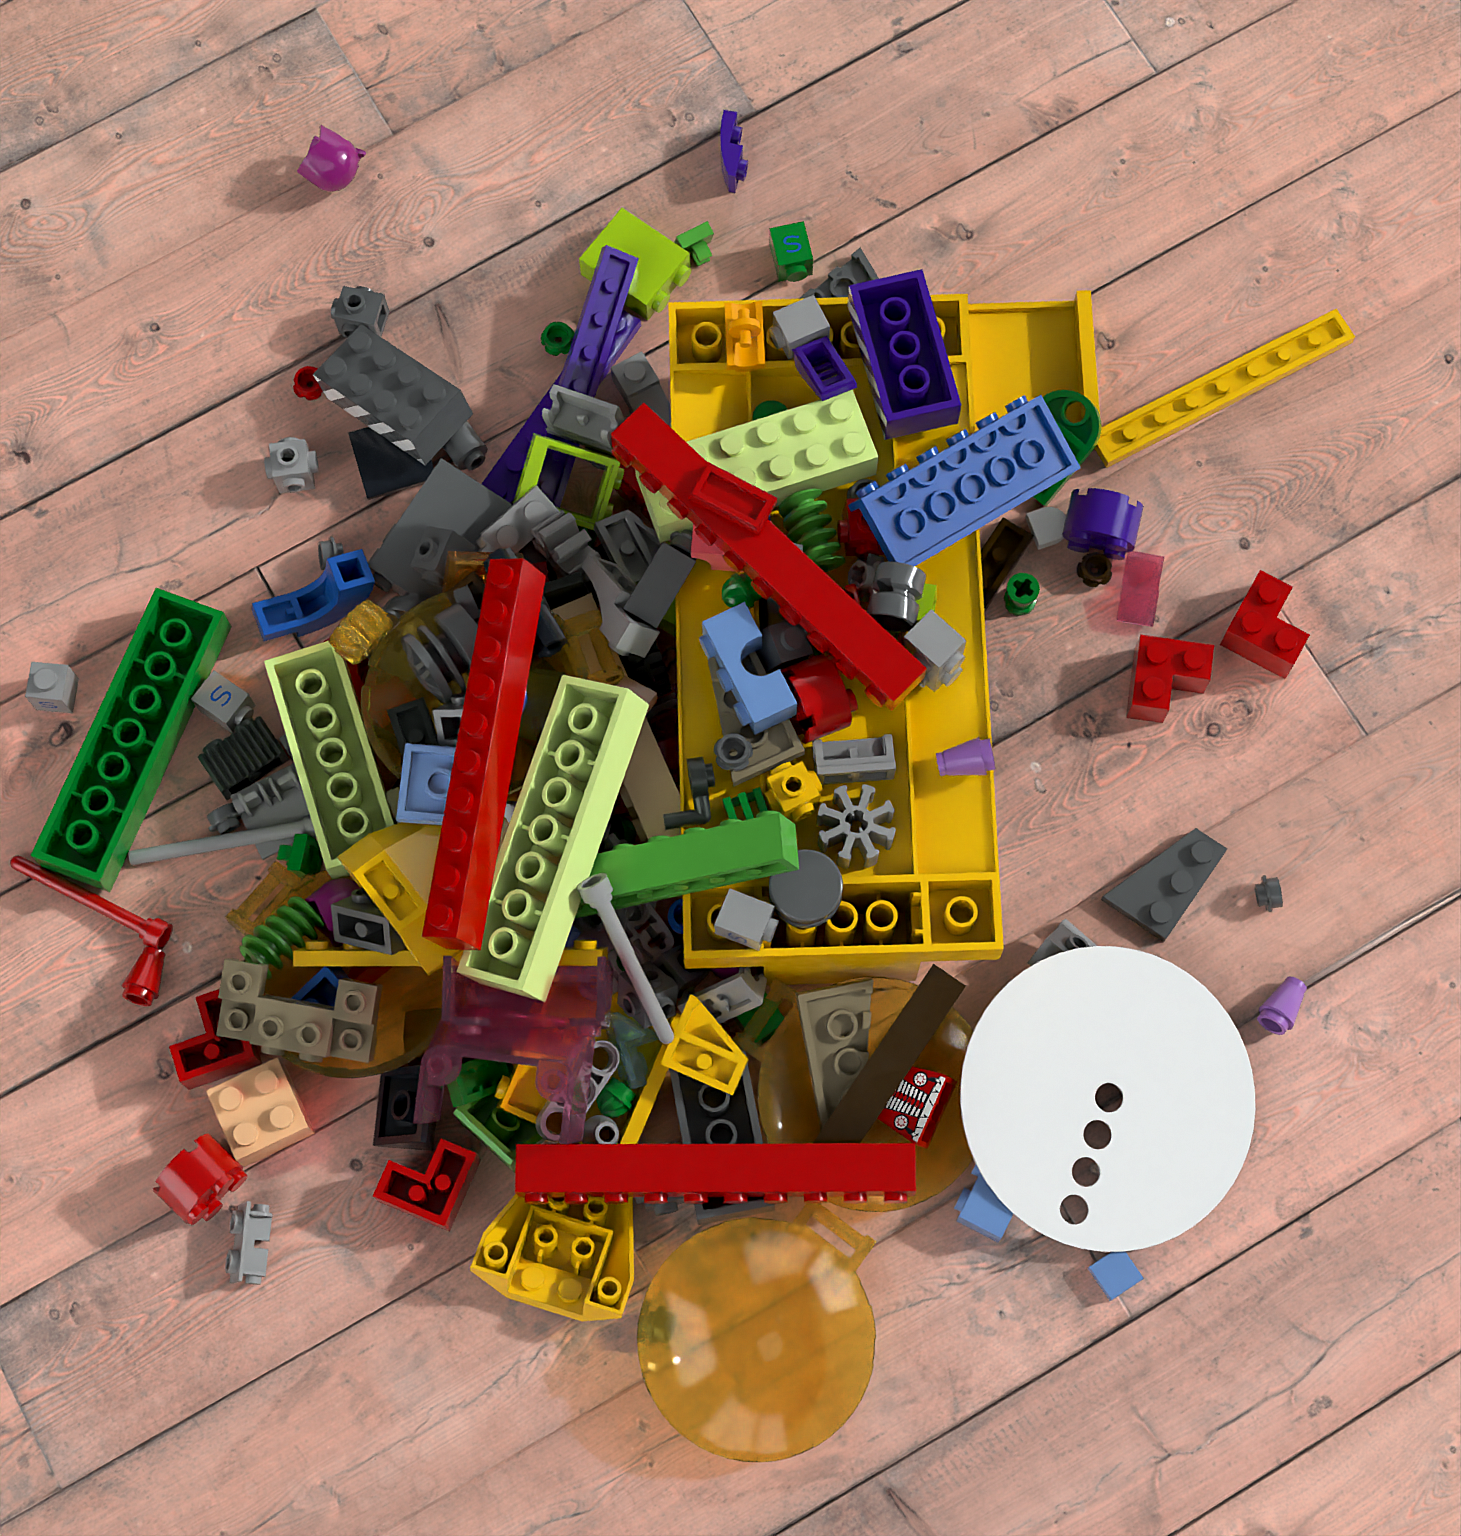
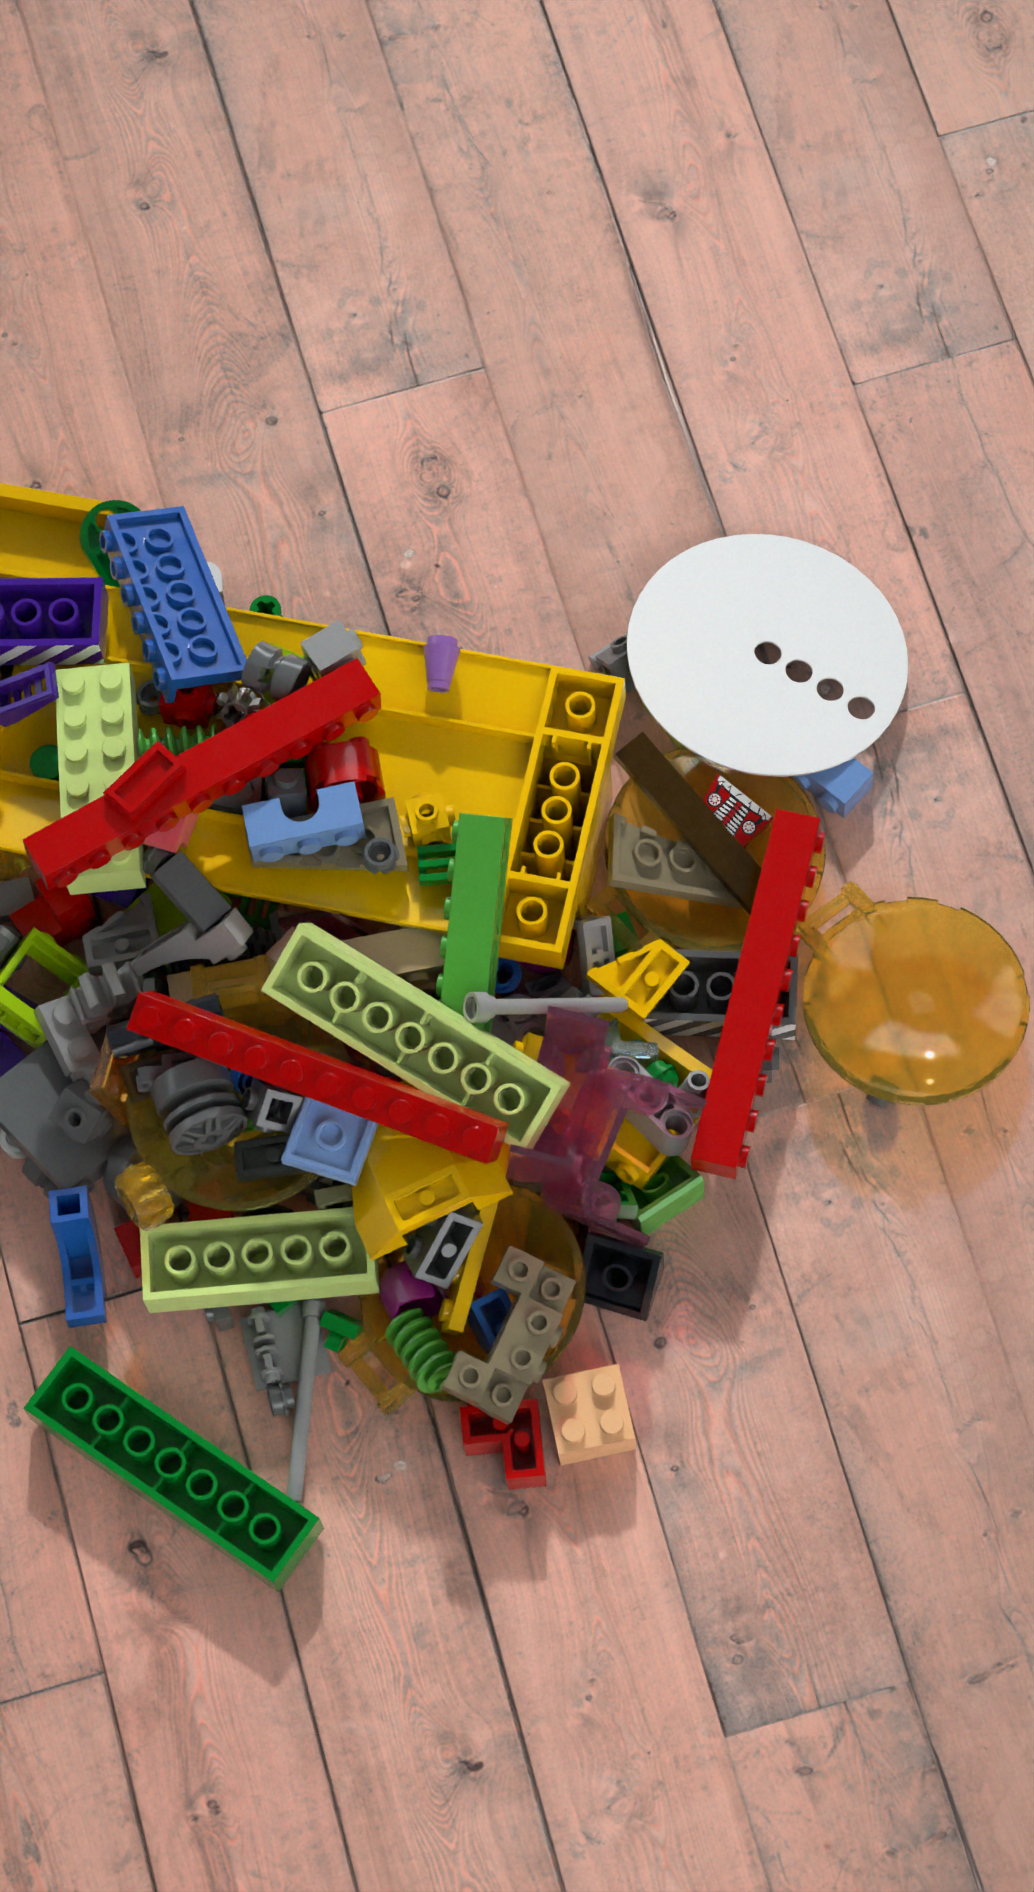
camera: 70 degrees left, 5 degrees down
(52, 687) = (92, 1543): light grey brick -> none
(145, 977) = (423, 1505): red cone -> none
(152, 931) = (376, 1492): red piece -> none
(199, 1180) = (644, 1479): red brick -> none
(223, 701) = (159, 1374): light grey brick -> none
(242, 756) = (222, 1368): pearl dark grey brick -> none
(248, 1228) = (696, 1451): light grey hinge -> none
(328, 549) = (31, 1244): dark grey plate -> none
(436, 1194) = (710, 1262): red brick -> none
(561, 1256) = (798, 1158): yellow wedge -> none
(700, 779) = (397, 897): pearl dark grey plate -> none
(739, 590) = (220, 820): green plate -> none
(746, 920) = (542, 885): light grey brick -> none
(808, 894) = (534, 828): dark grey head -> none
(842, 820) = (489, 764): light grey gear -> none
(854, 760) = (409, 761): light grey hinge -> none
(1098, 561) = (257, 542): dark brown plate -> none
(1102, 522) = (222, 524): dark purple brick -> none
(1115, 1273) = (924, 694): medium blue tile -> none
(1140, 588) = (290, 518): clear pink slope -> none
(1163, 666) = (378, 518): red brick -> none
(1167, 884) = (580, 563): dark grey wing -> none
(1223, 387) = (114, 392): yellow plate -> none
(1259, 633) = (361, 426): red brick -> none
(1269, 893) = (612, 481): dark grey plate -> none
(1281, 1008) = (719, 496): medium lavender cone -> none

